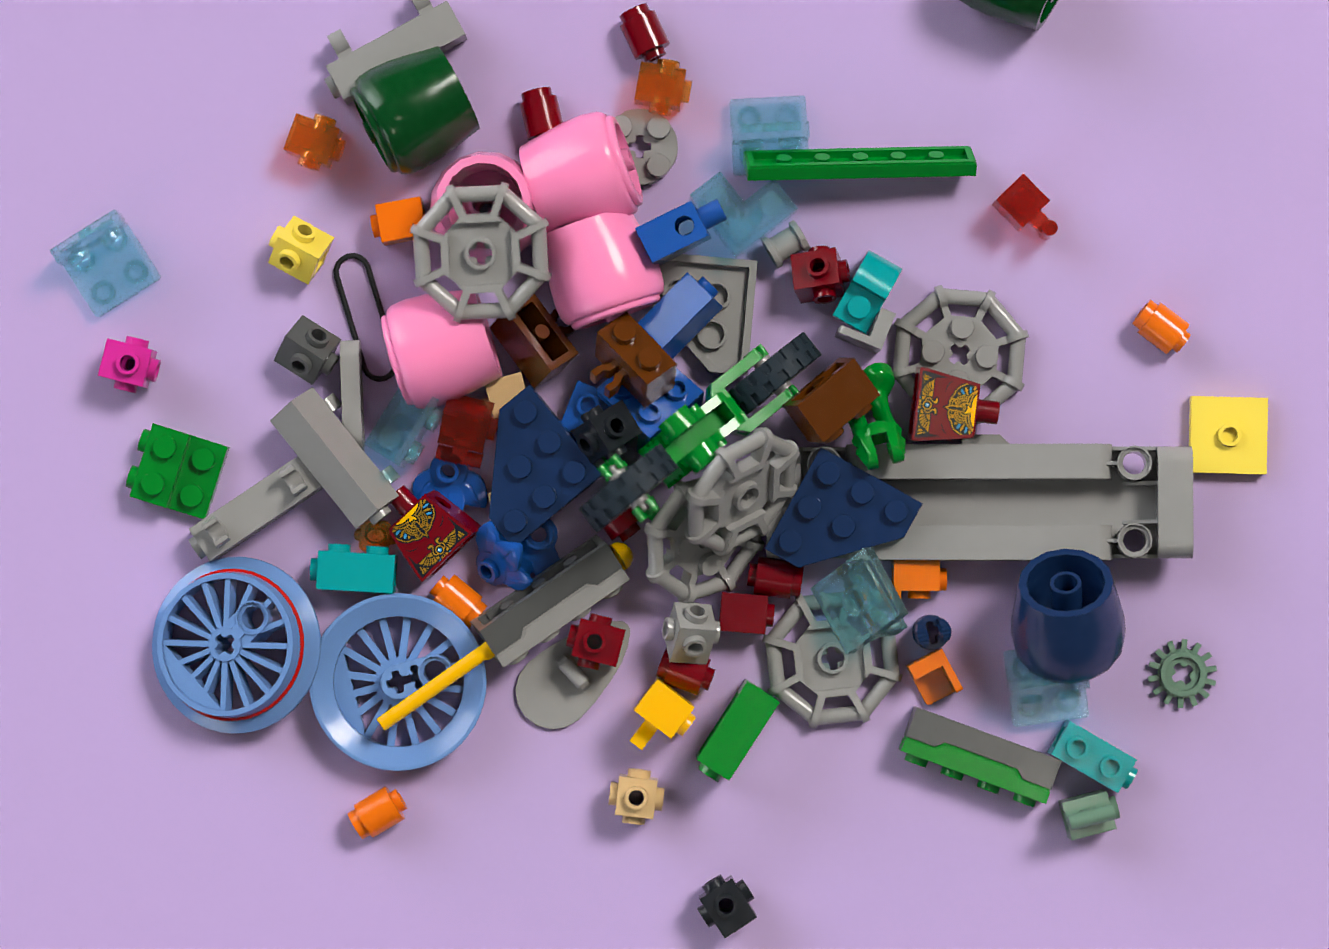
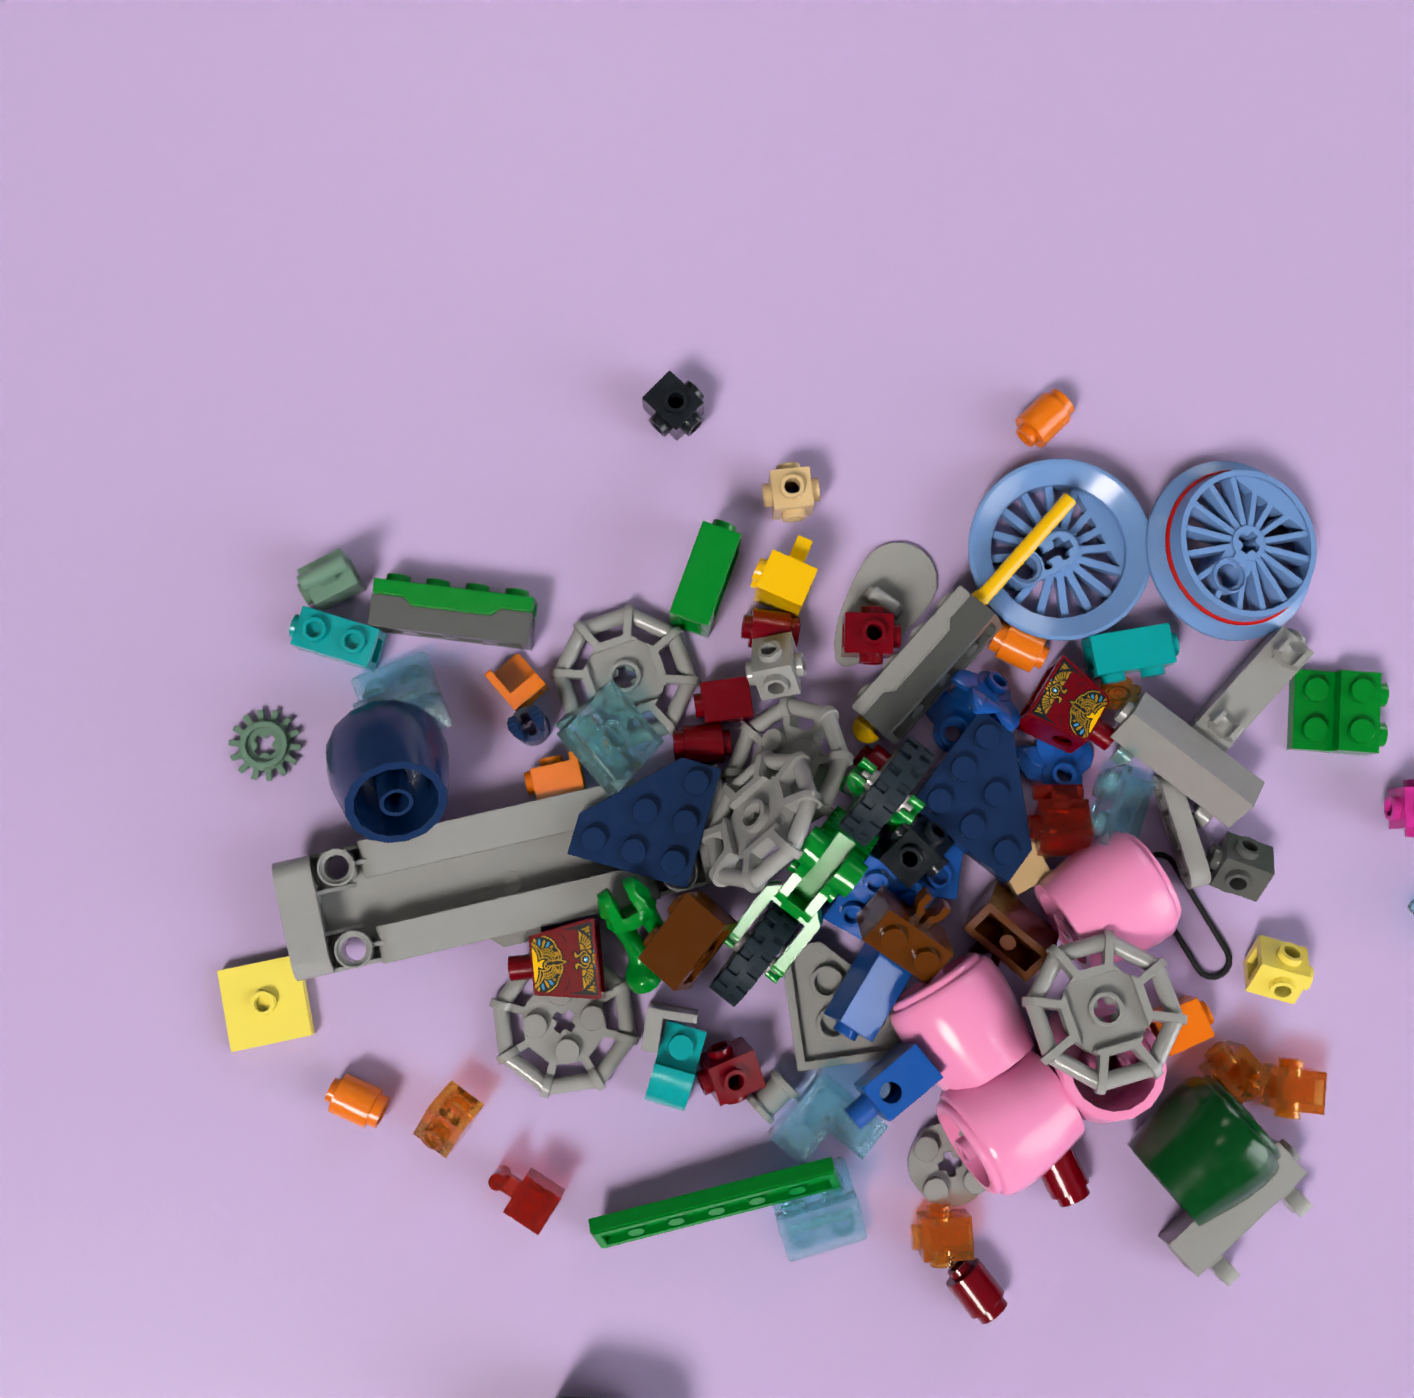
camera: 170 degrees right, 5 degrees down
(364, 169) = (1235, 1070): none -> clear orange brick
(1082, 292) = (448, 1119): none -> clear orange brick

